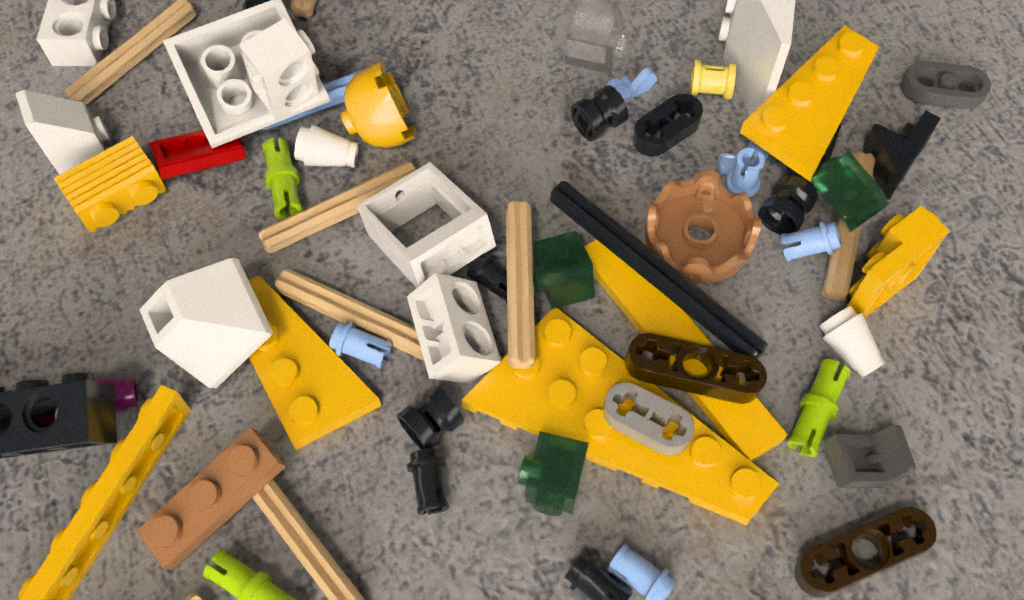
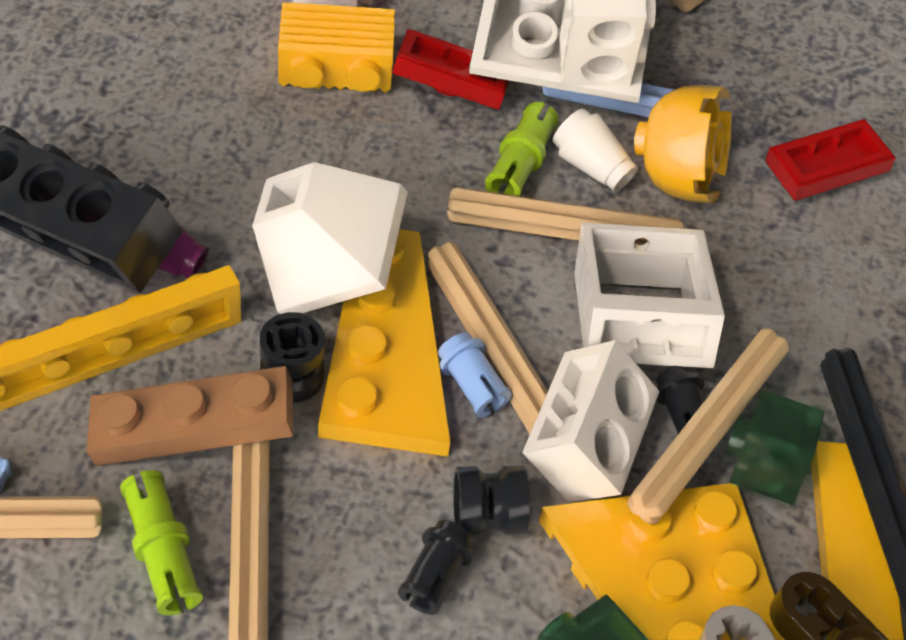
camera: 30 degrees right, 10 degrees down
(254, 410) = (300, 345): none -> black wheel
(463, 64) = (829, 159): none -> red plate

